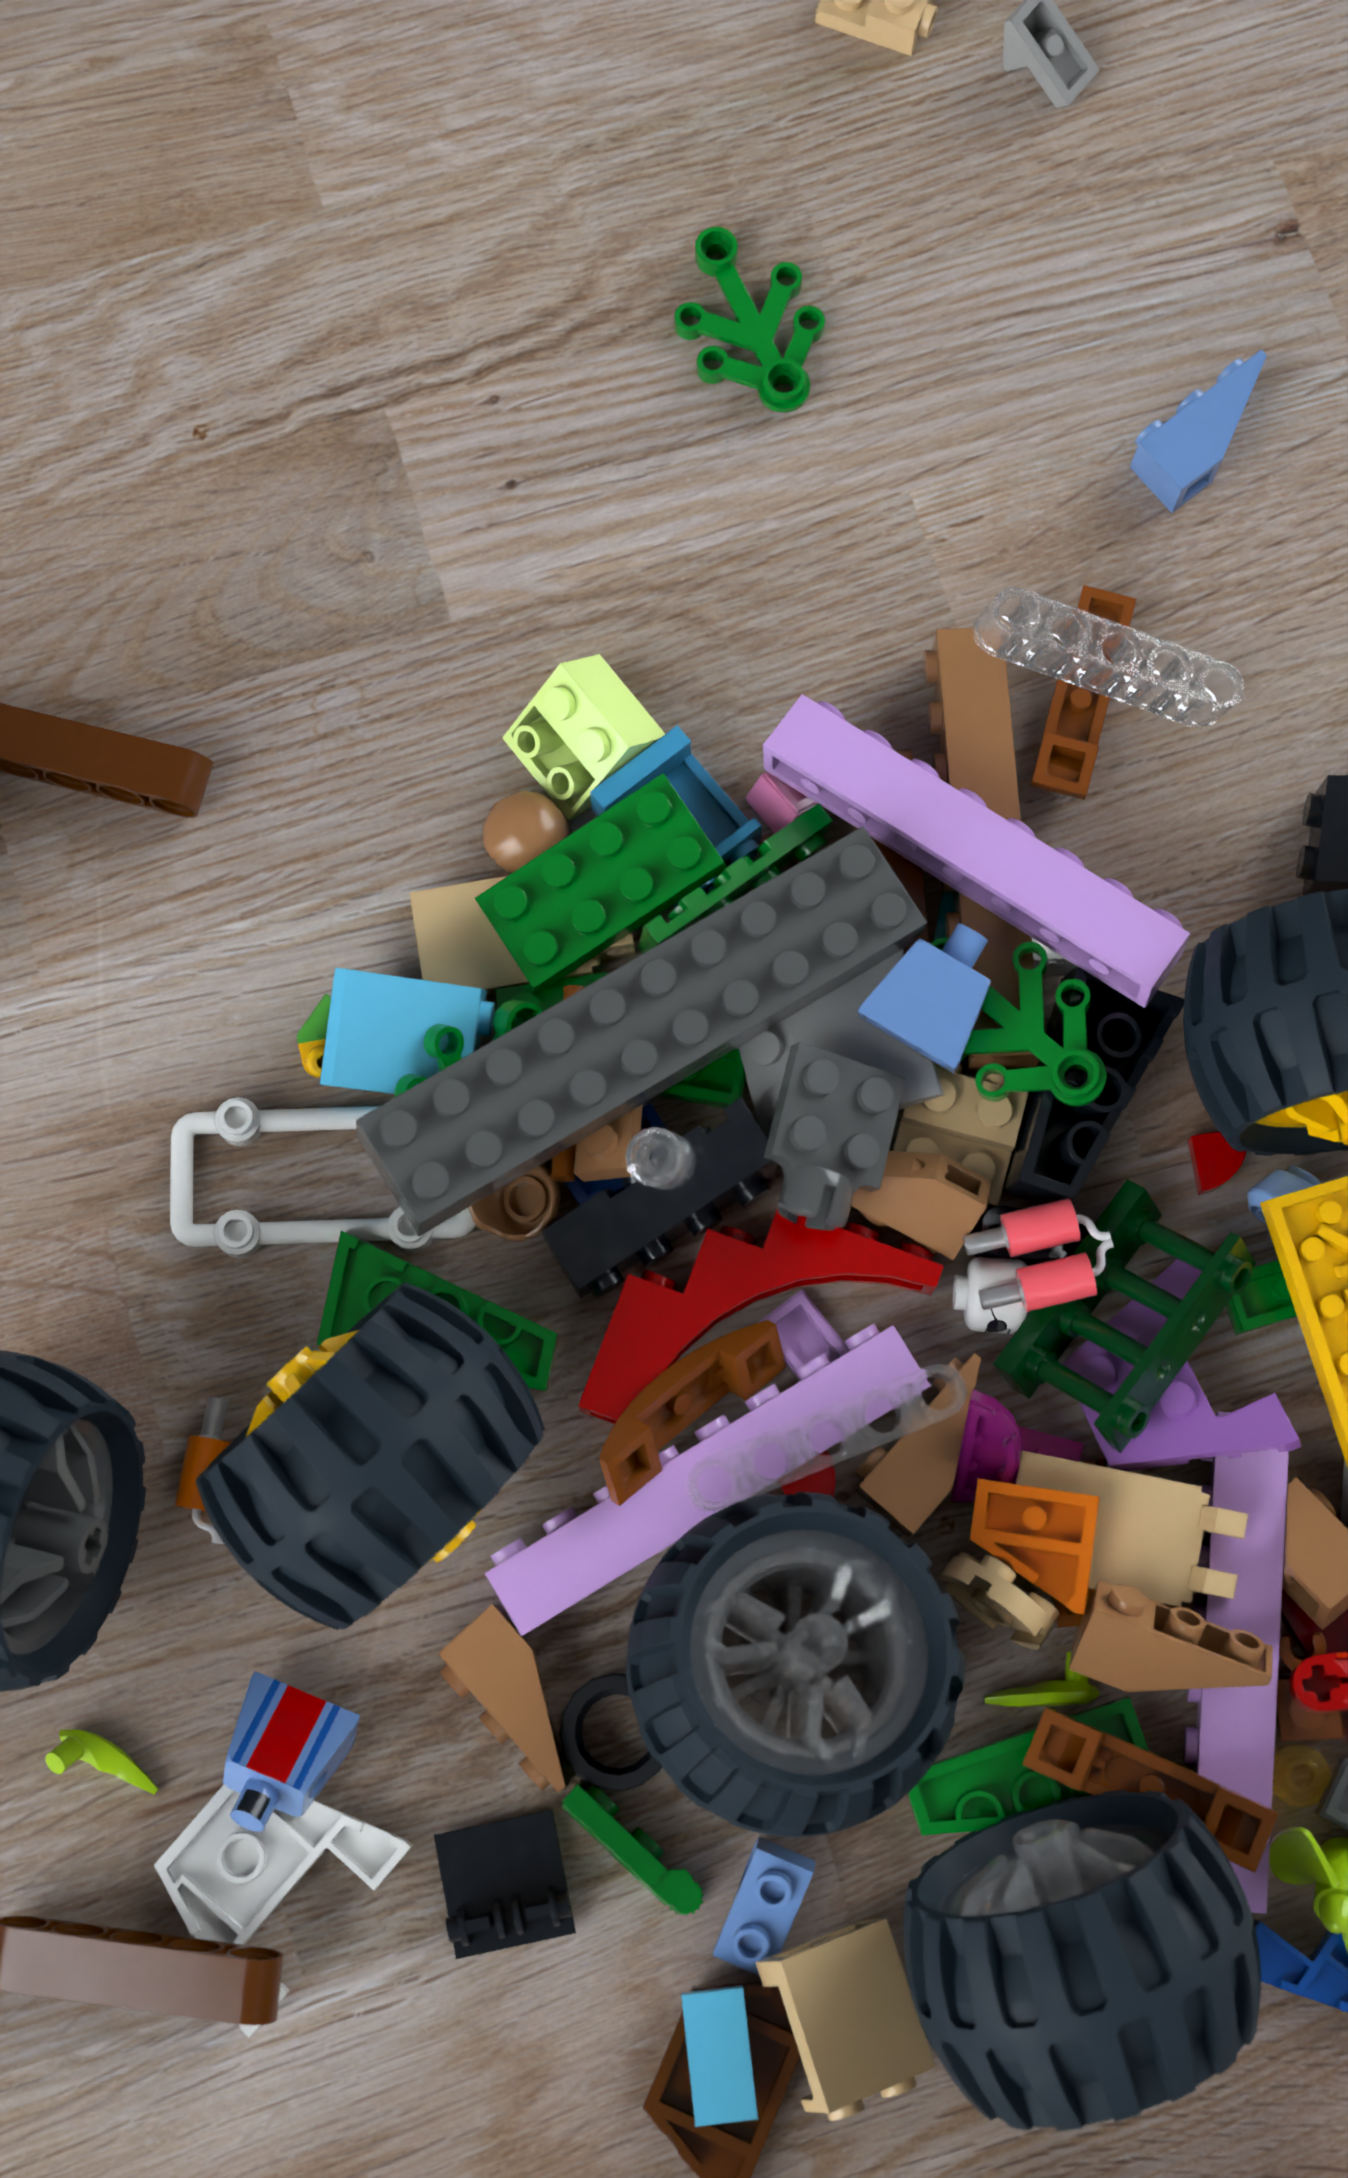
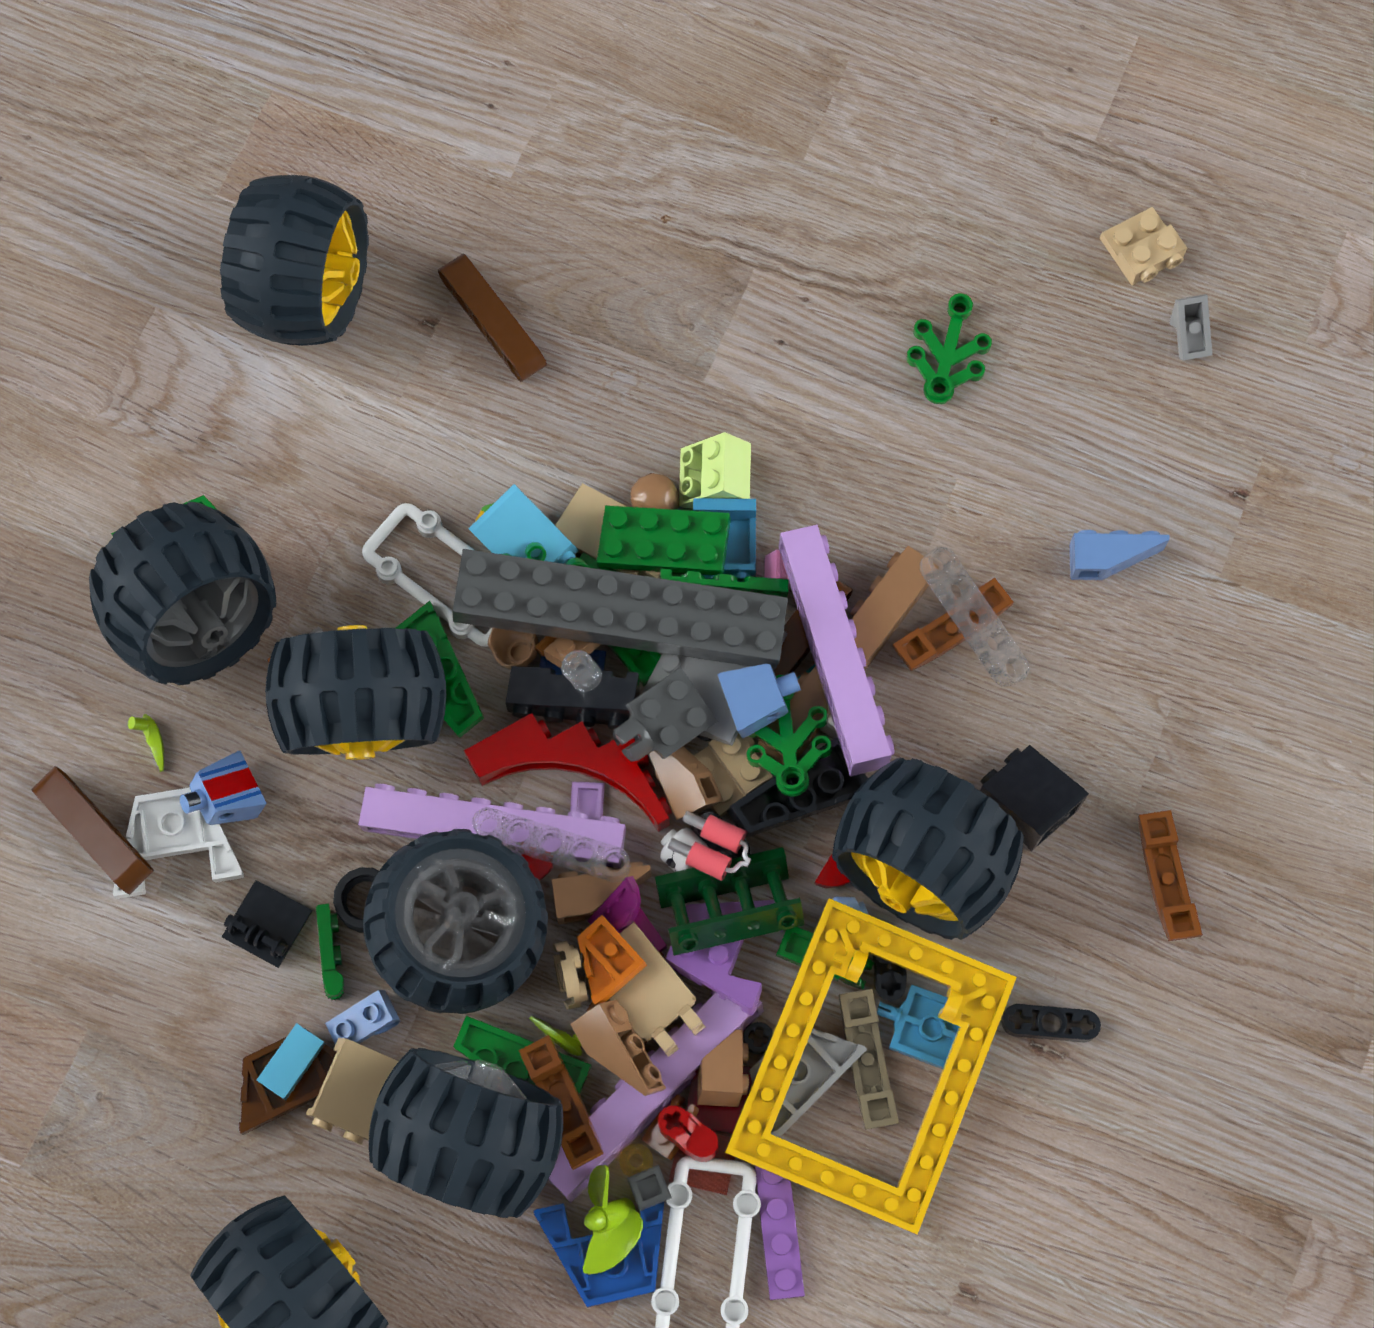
camera: 40 degrees right, 5 degrees down
(506, 1679) = (337, 845): medium nougat slope -> none
(681, 1394) = (509, 782): dark orange slope -> none
(1313, 1450) = (767, 1033): none -> black bush

